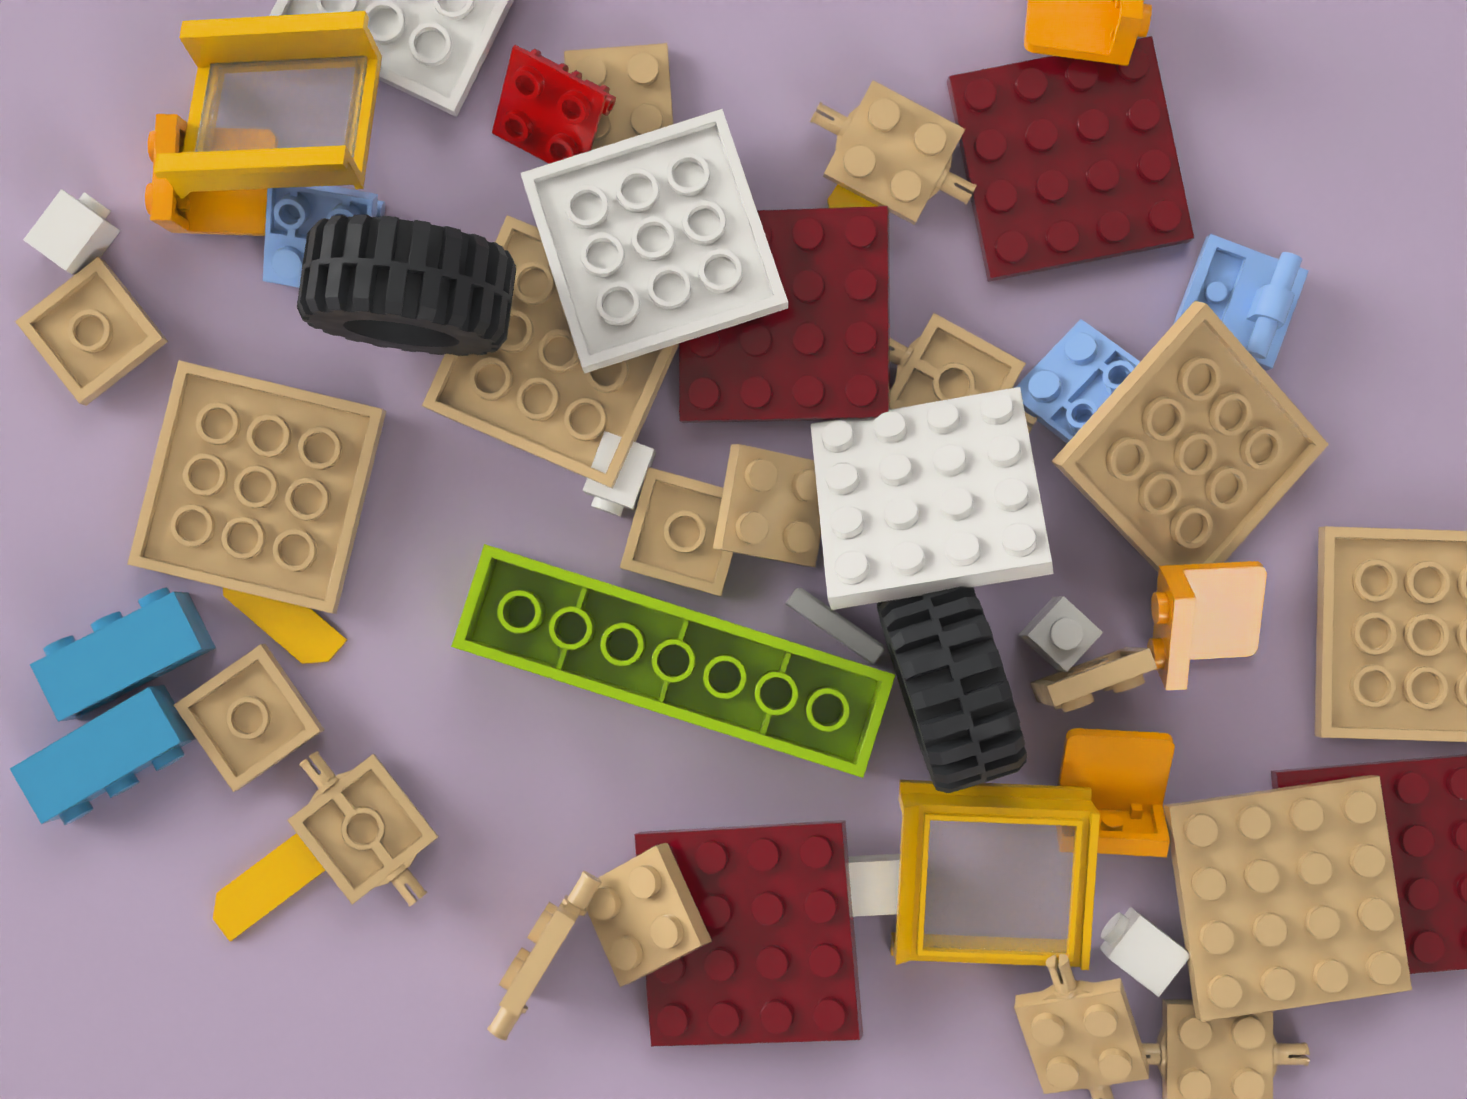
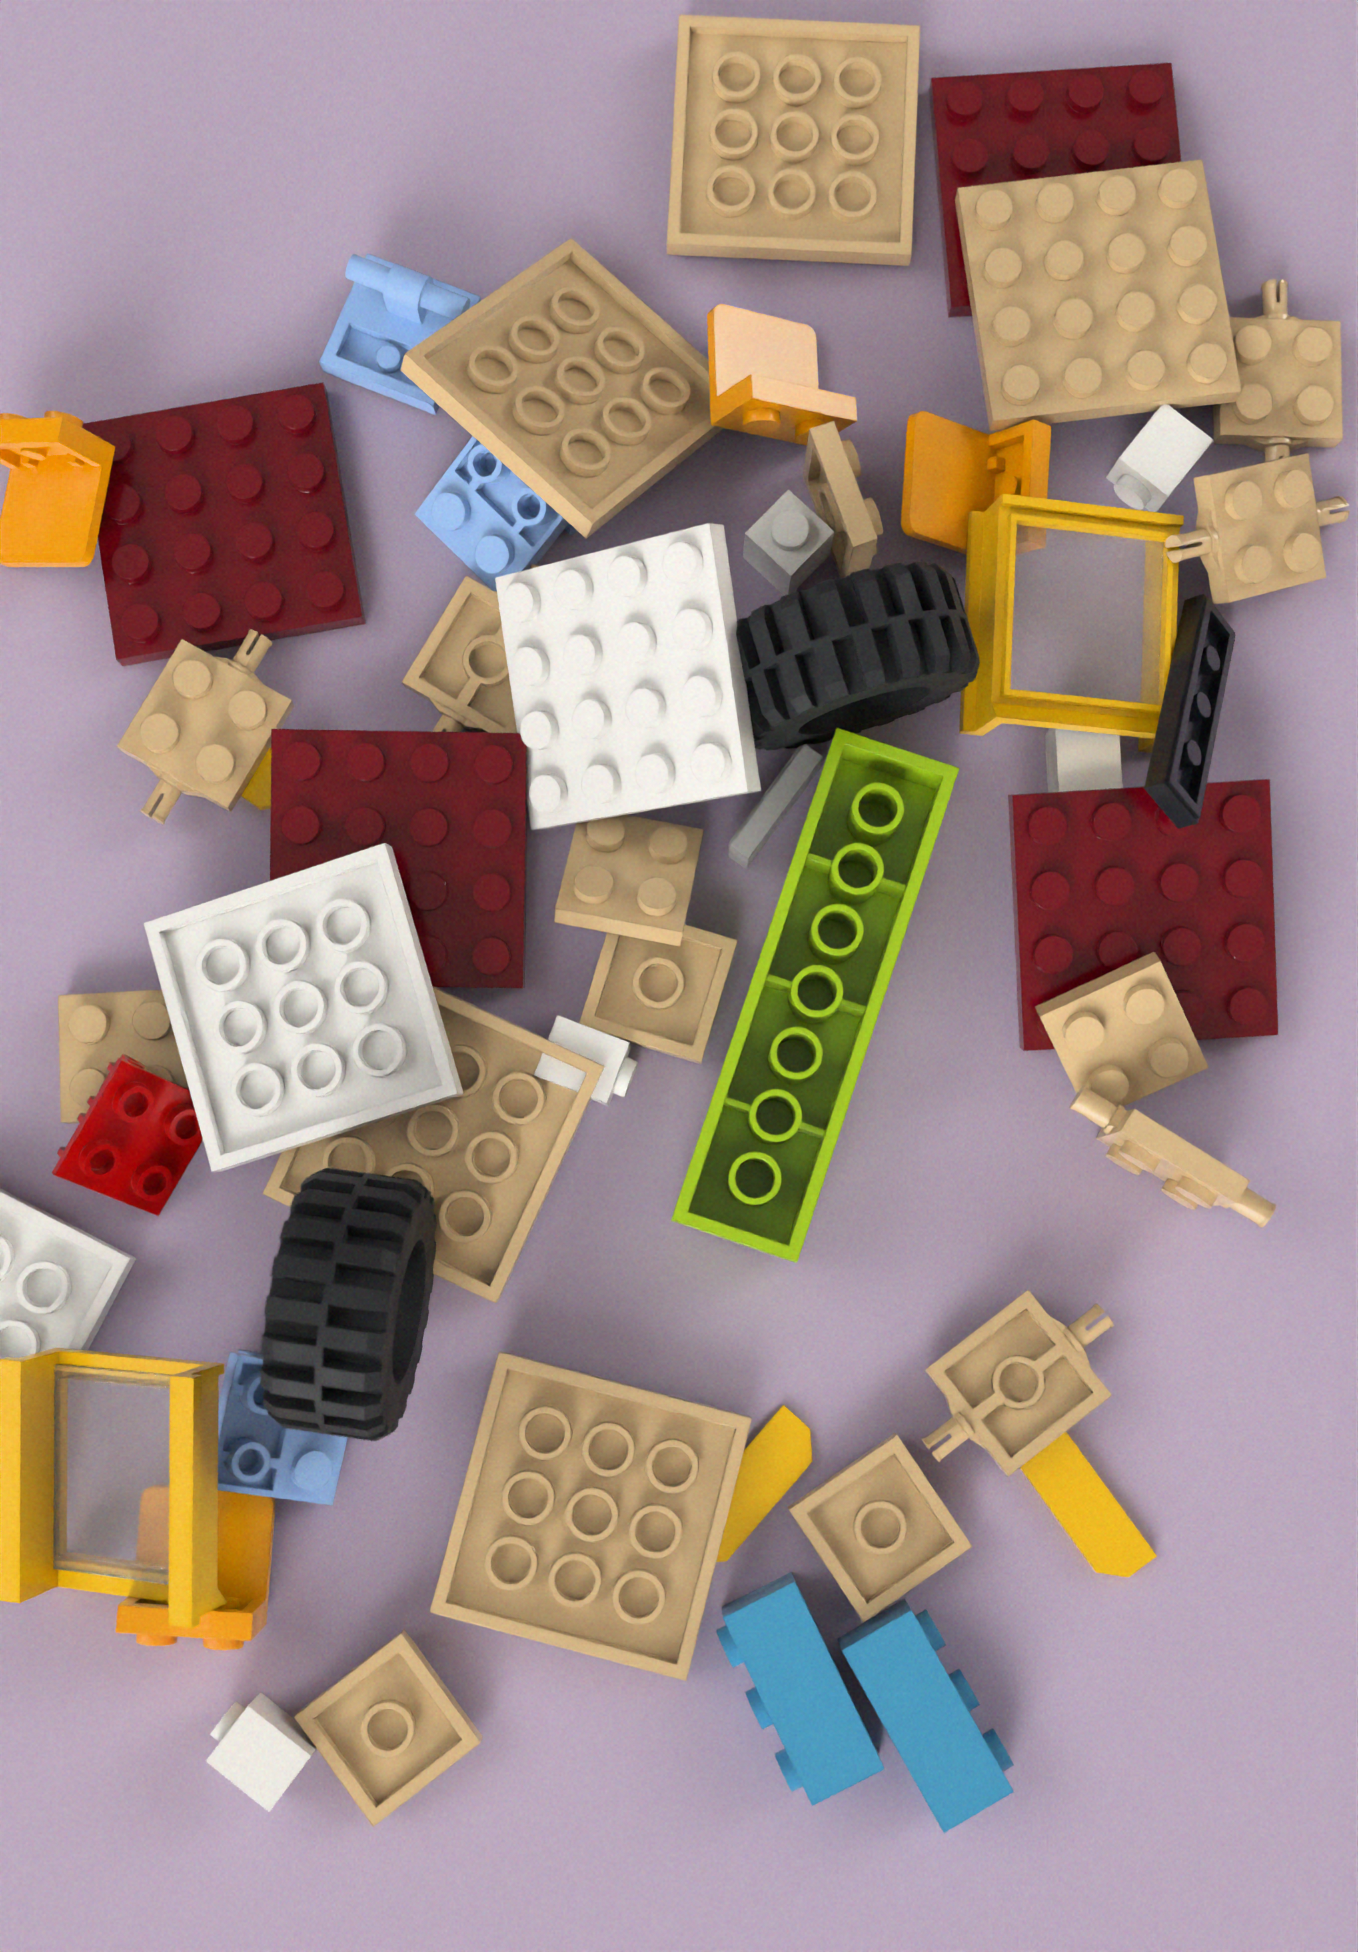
camera: 85 degrees left, 5 degrees down
(916, 973) = (1190, 712): none -> black tile

